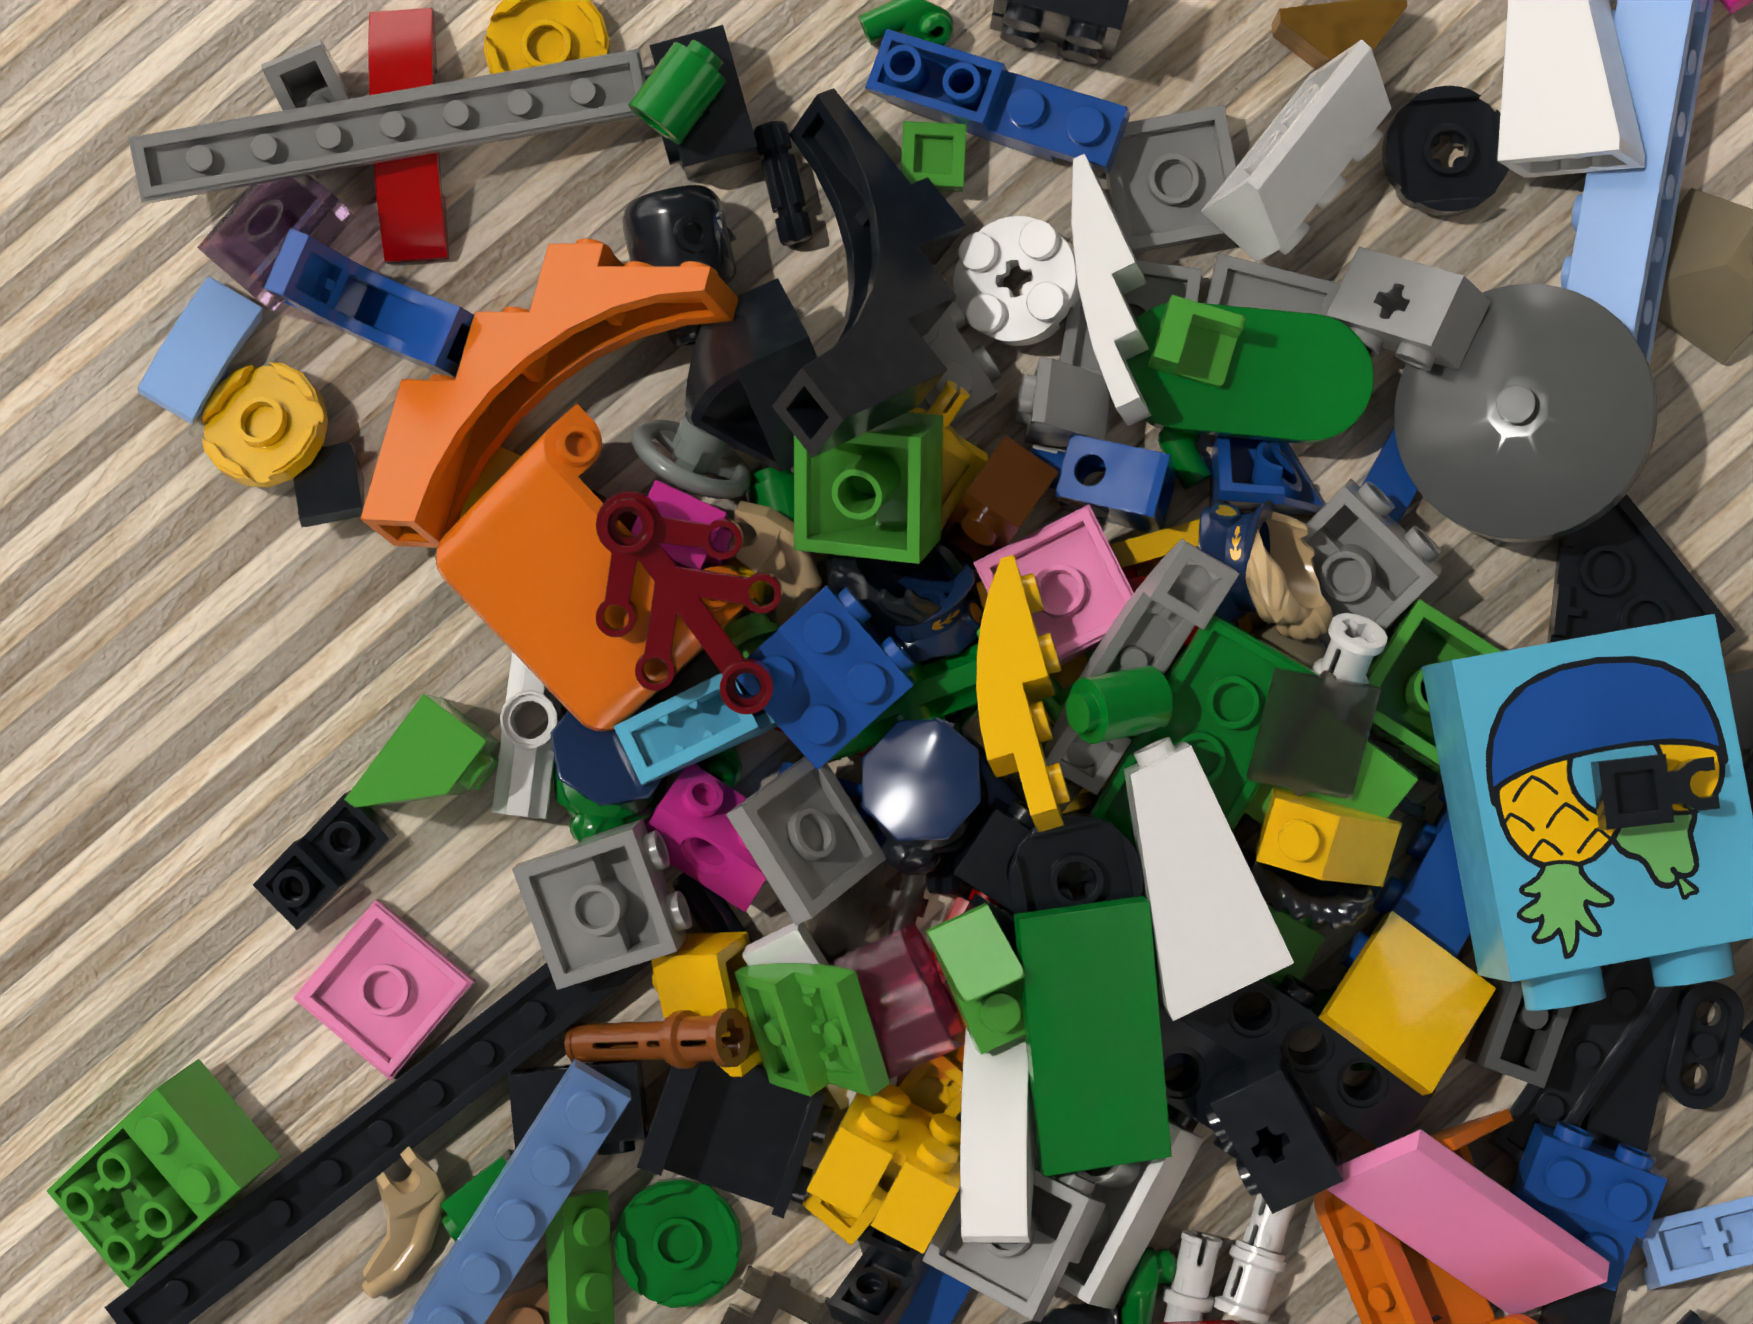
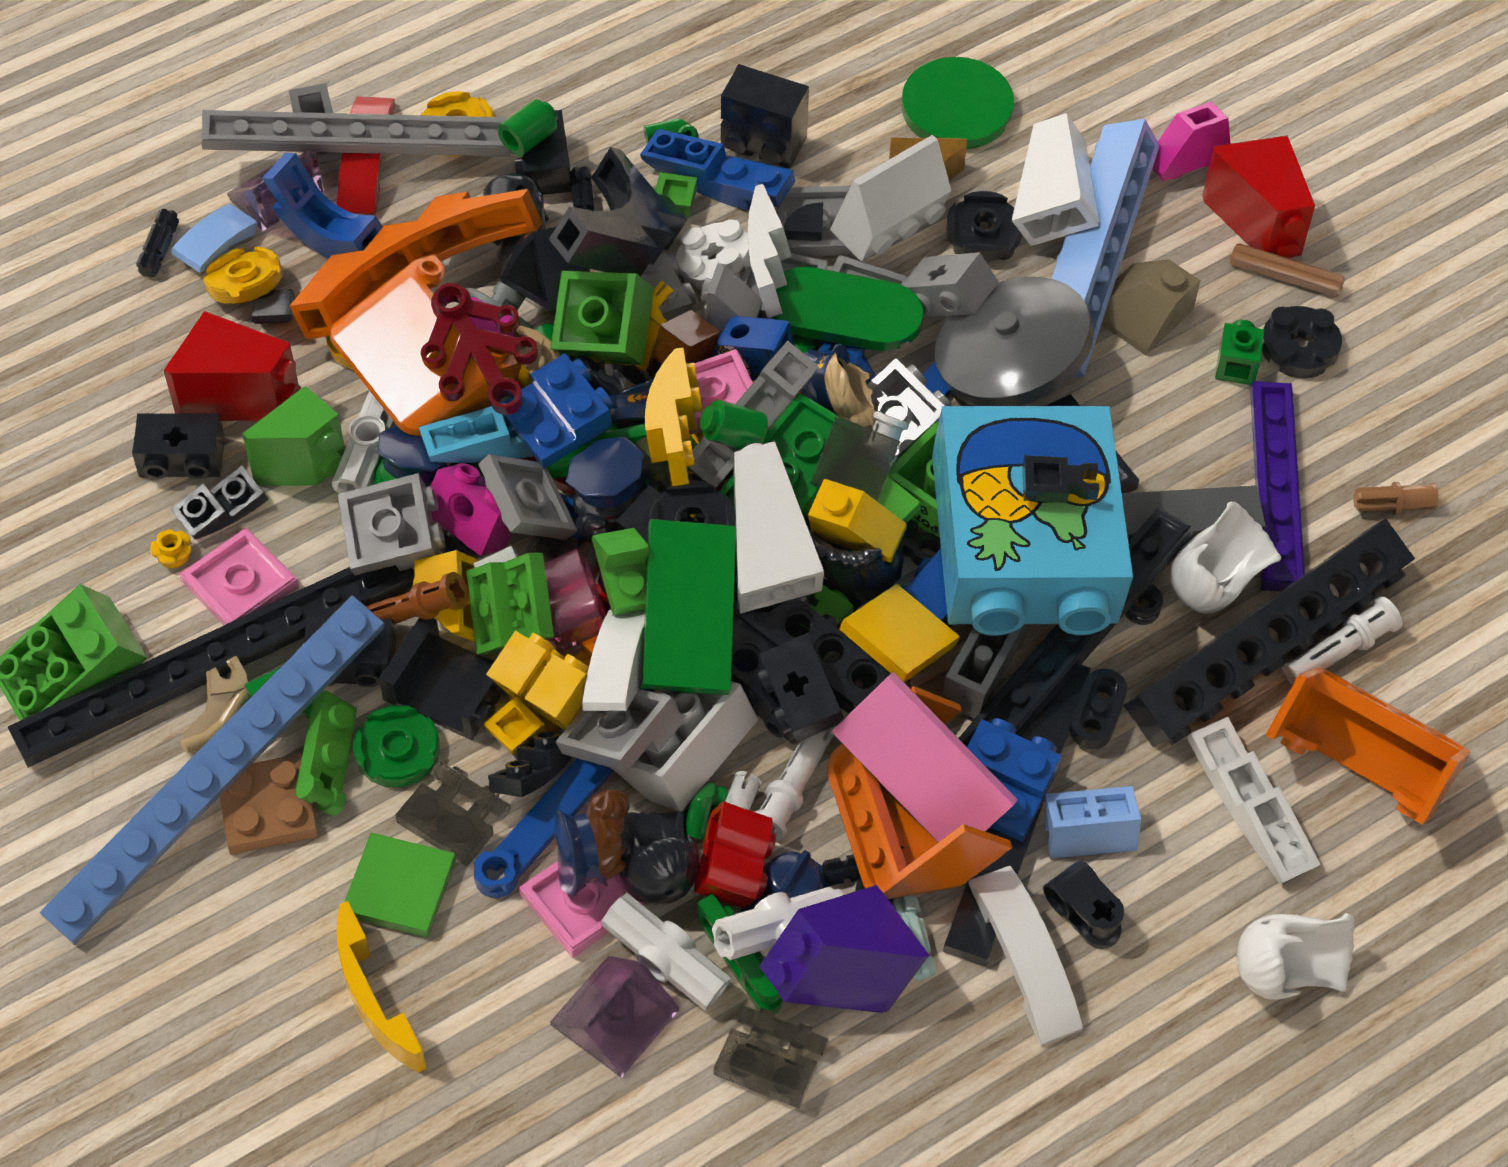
camera: 10 degrees right, 30 degrees down
(109, 368) = (157, 242): none -> black axle
(200, 766) = (178, 445): none -> black brick
(286, 946) = (173, 556): none -> yellow plate
(291, 642) = (230, 371): none -> red slope
(1160, 204) = (805, 223): none -> black tile
(1196, 341) = (815, 276): bright green panel -> none

